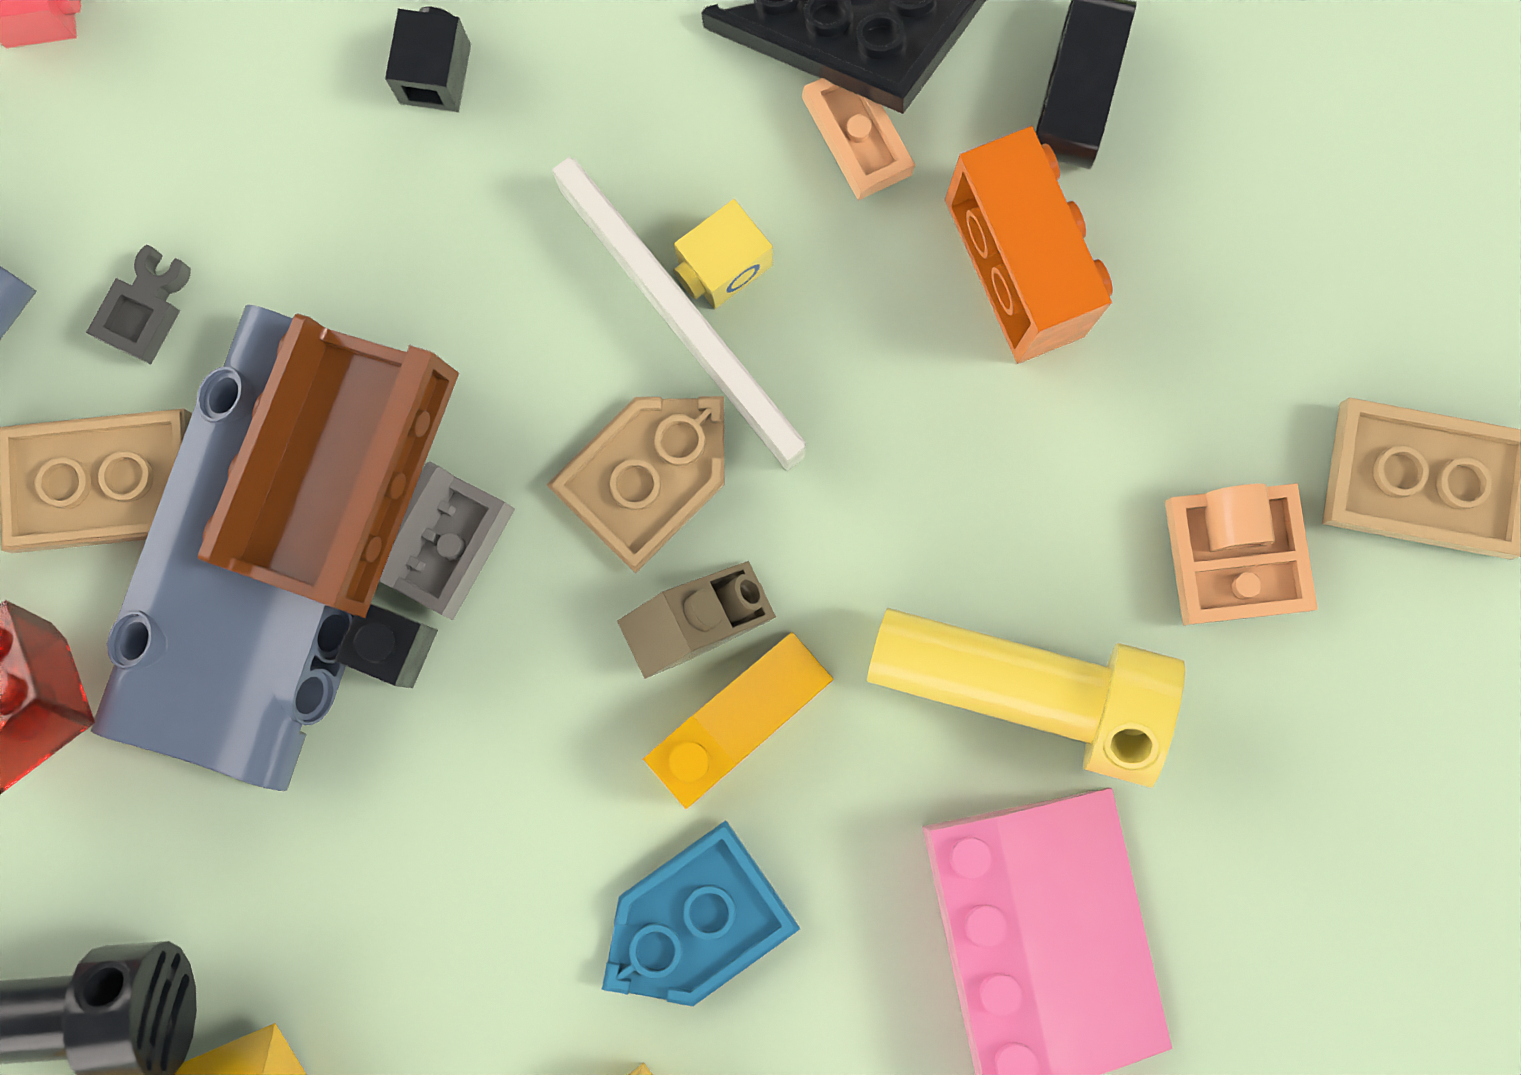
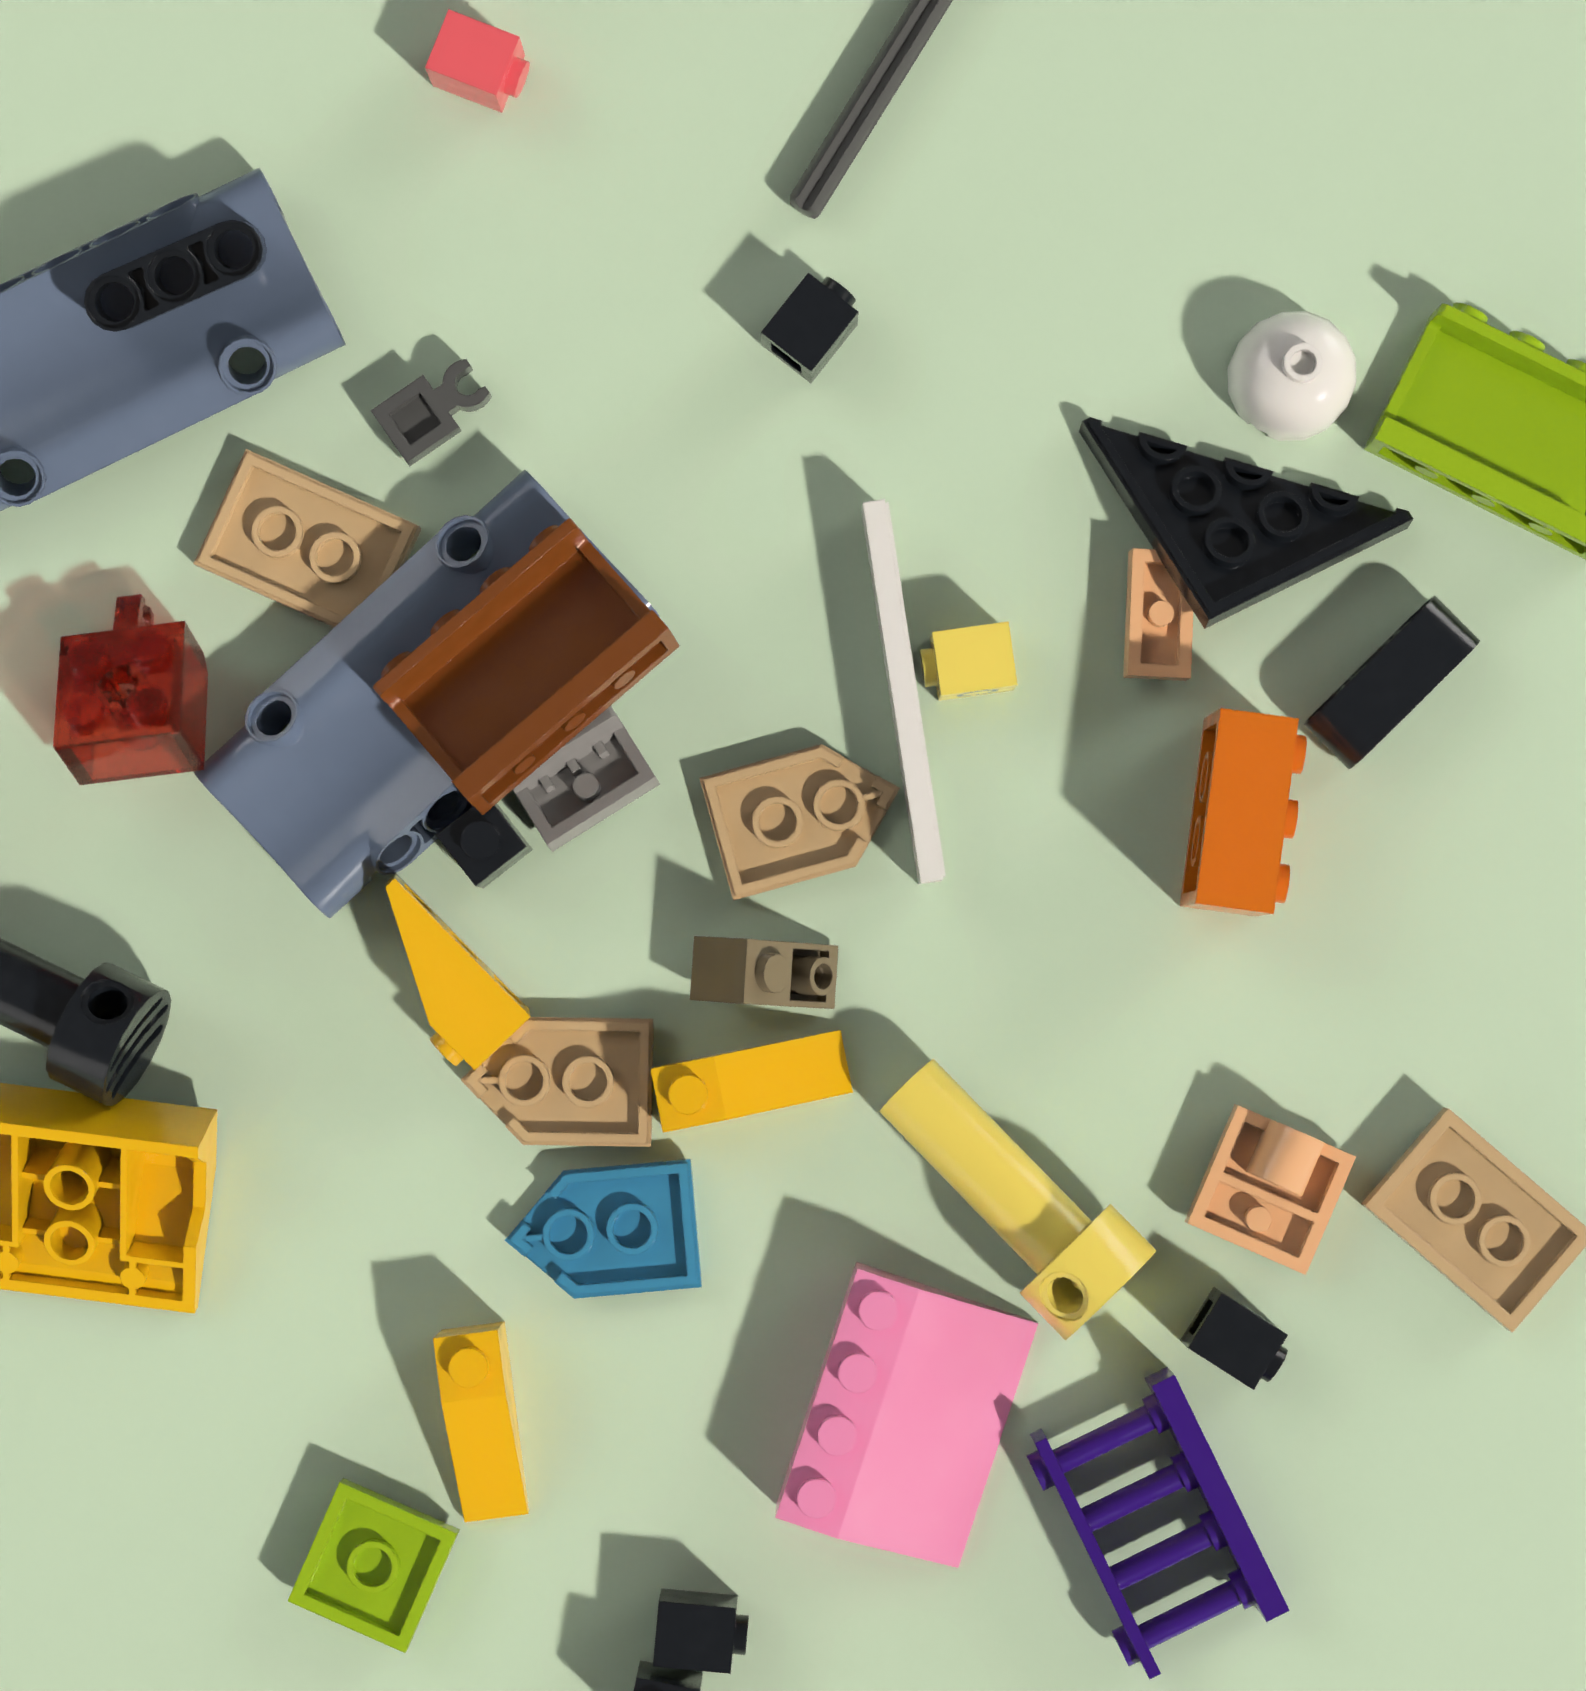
camera: 30 degrees right, 5 degrees up
(428, 787) = (458, 990): none -> yellow slope
(582, 812) = (572, 1082): none -> tan tile
(1292, 700) = (1236, 1339): none -> black brick
(1379, 875) = (1219, 1527): none -> dark purple fence

